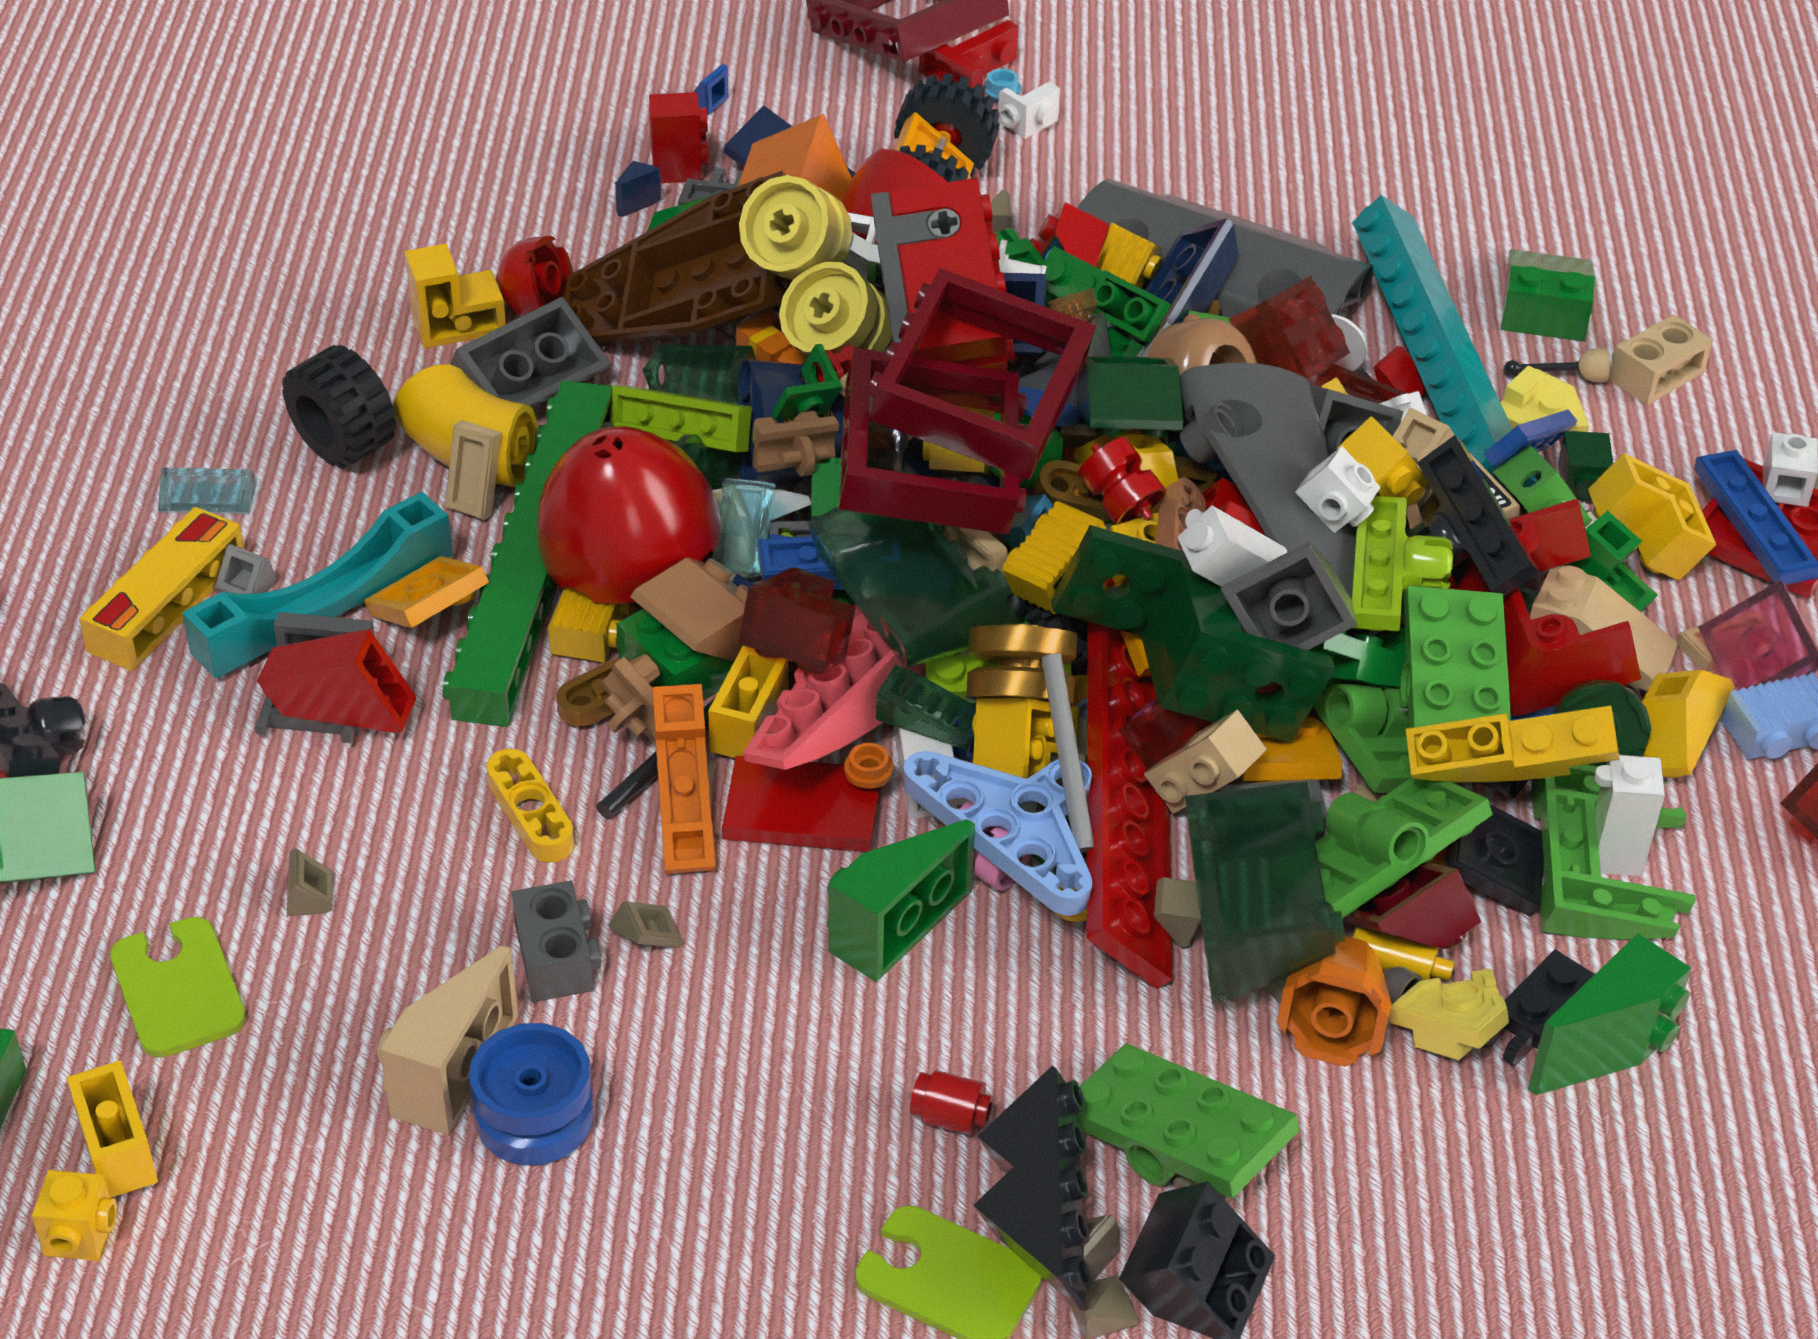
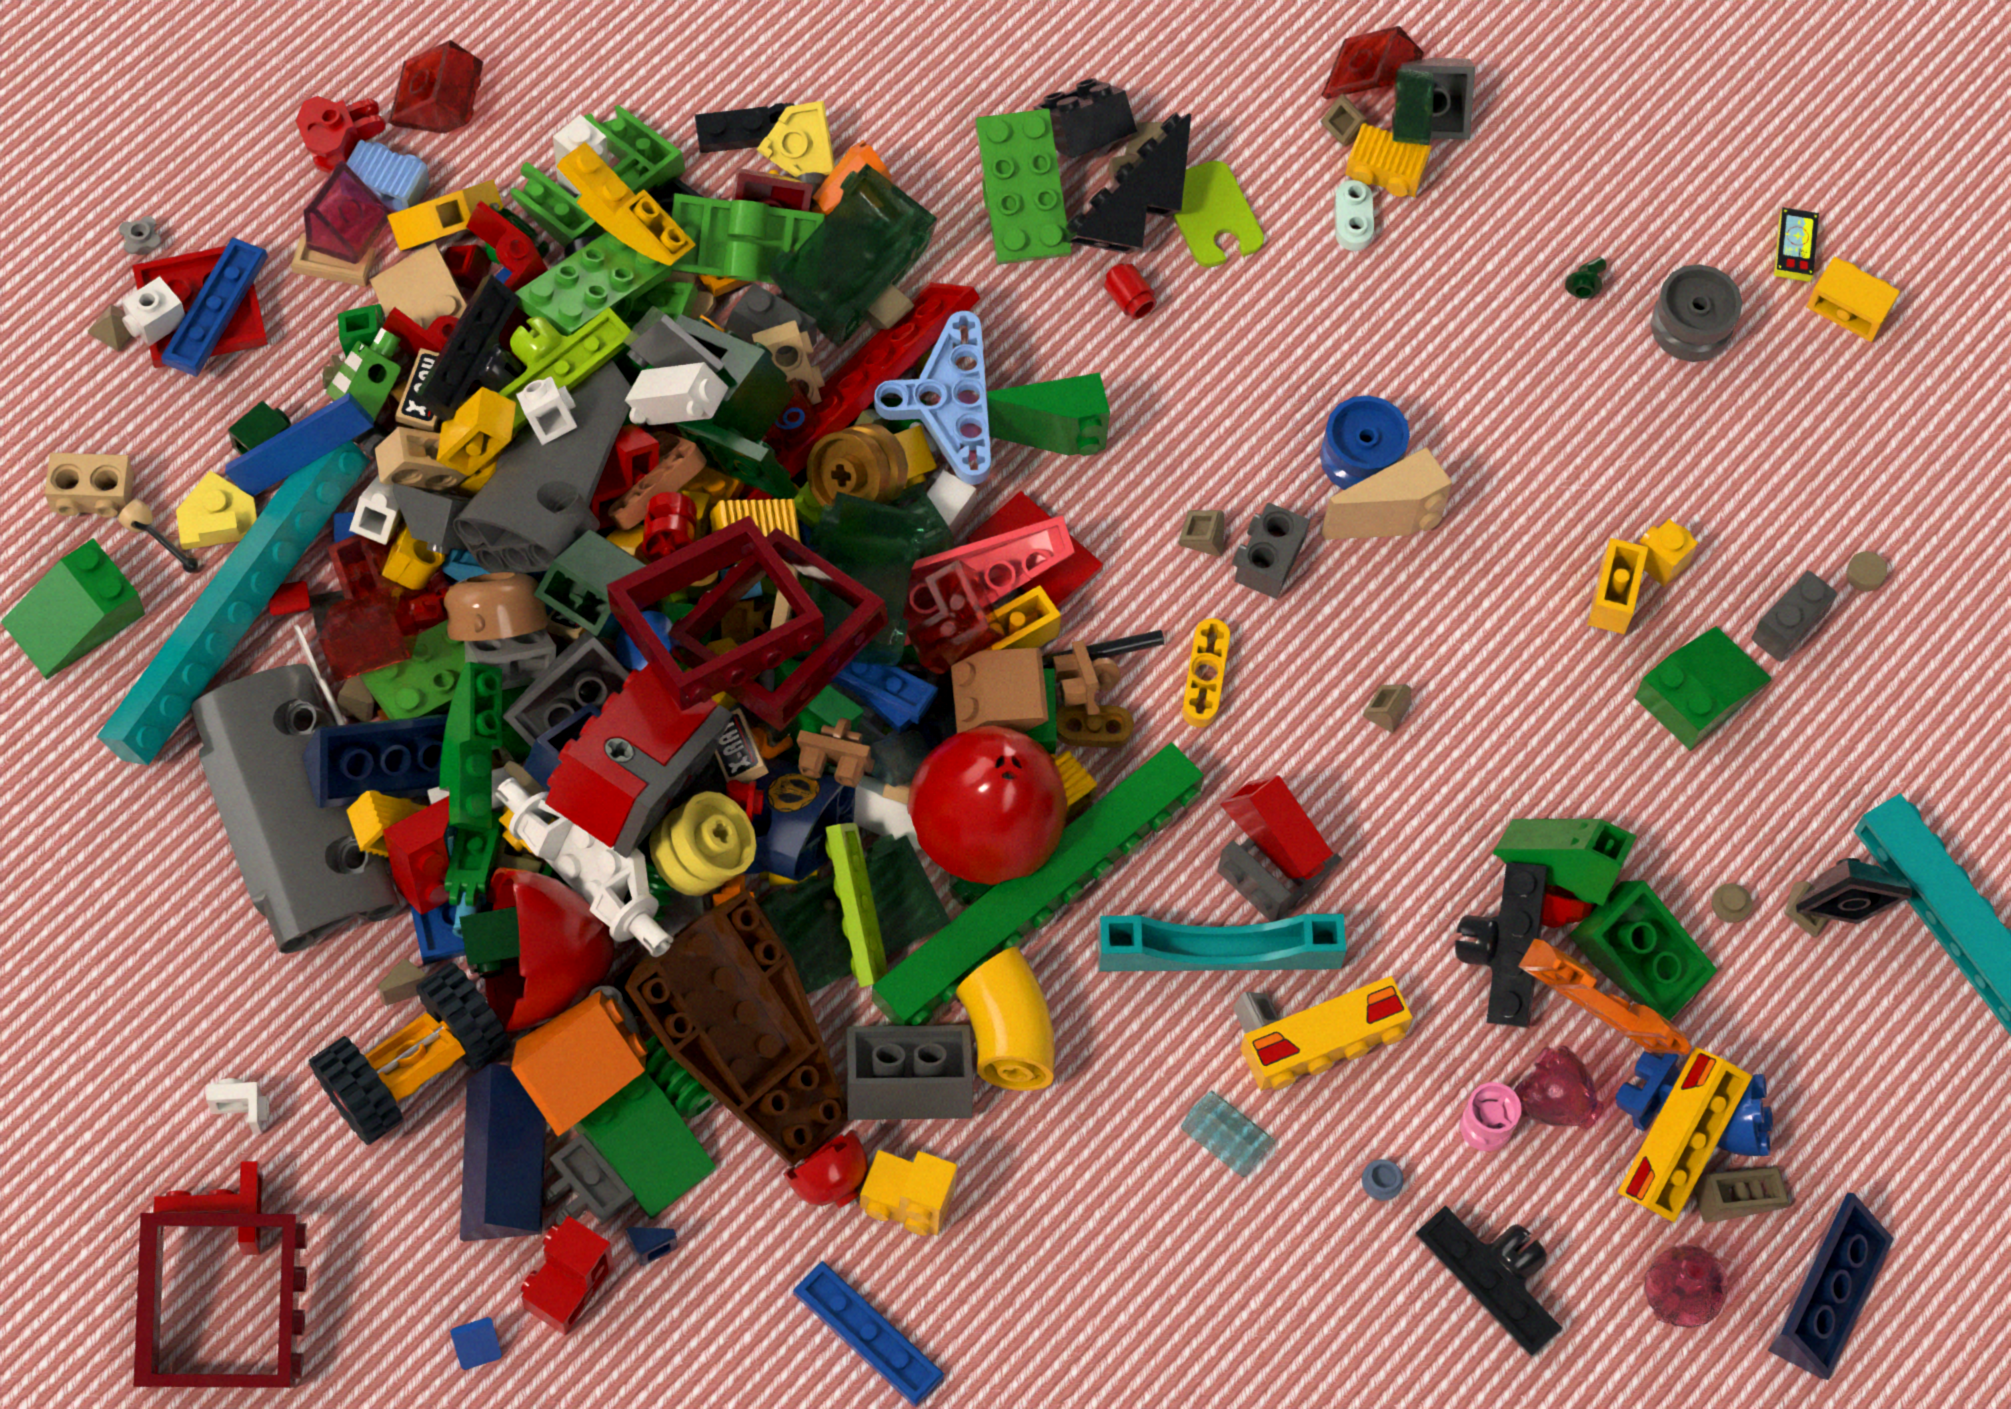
camera: 145 degrees left, 20 degrees up
(30, 526) = (1382, 1180): none -> sand blue plate
(180, 999) = (1512, 681): lime piece -> none
(339, 406) = (1096, 1099): black tyre -> none
(398, 235) = (868, 1334): none -> blue tile
(427, 591) = (1152, 882): light orange plate -> none
(472, 470) = (1041, 970): tan tile -> none
(683, 779) = (1109, 600): orange slope -> none
(794, 226) = (682, 902): light yellow wheel -> none
(813, 395) = (789, 778): green bracket -> none
(868, 766) = (980, 521): orange plate -> none
(1000, 79) = (220, 1152): medium azure plate -> none
(1067, 751) = (891, 387): light grey bar -> none
(1076, 305) = (526, 724): clear orange plate -> none
(1613, 1018) = (737, 68): green slope -> none
(1658, 512) = (284, 345): yellow brick -> none

